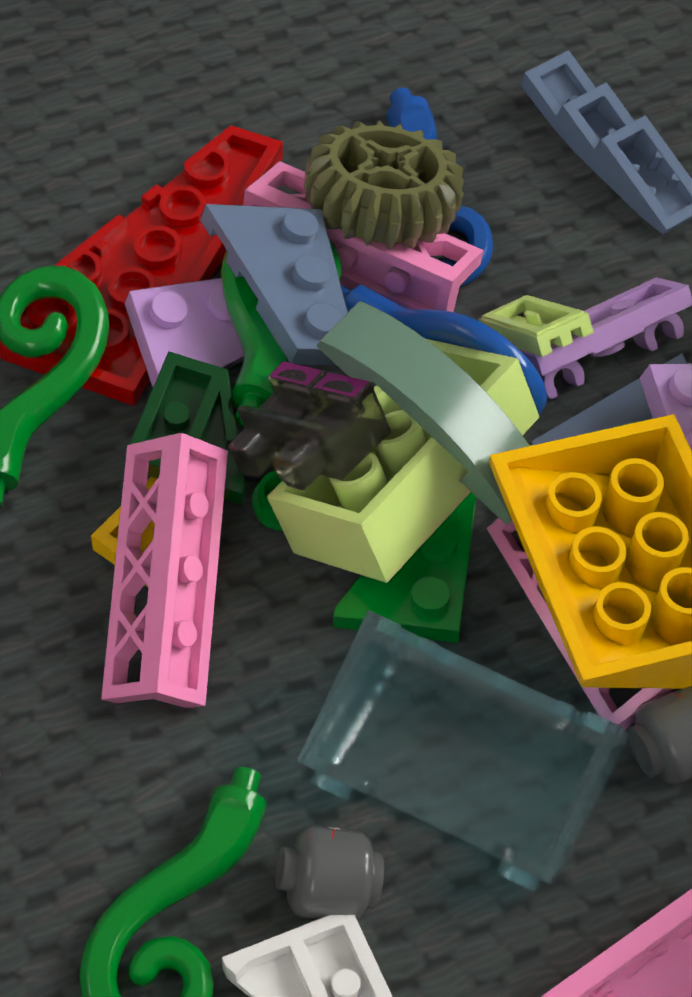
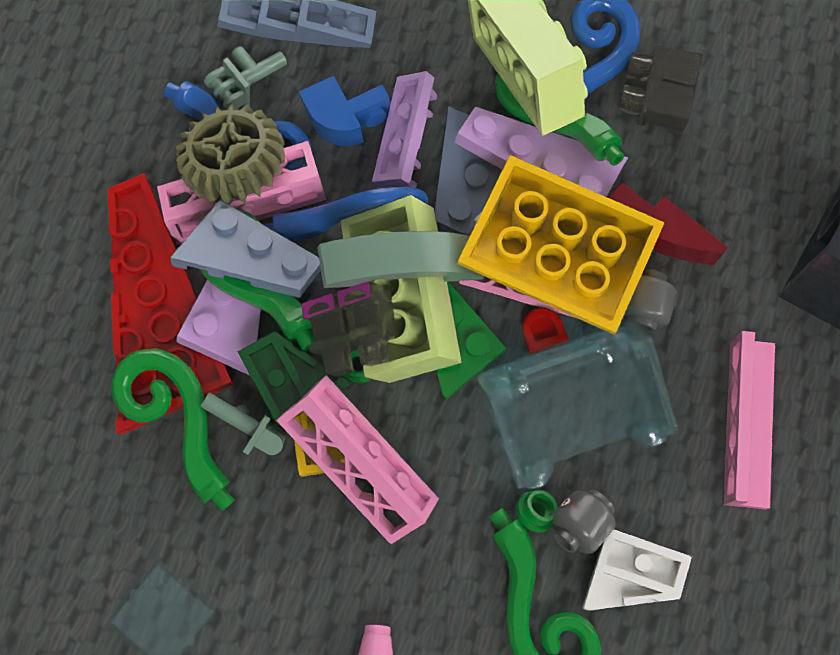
camera: 40 degrees left, 20 degrees up
(102, 459) = (263, 434): none -> sand green arm
(301, 803) = (536, 510): none -> green plate
(466, 137) = (234, 85): none -> sand green arm
(524, 655) = (543, 330): none -> red tile
(541, 324) = (376, 166): yellowish green tile -> none
(549, 263) = (340, 119): none -> blue brick

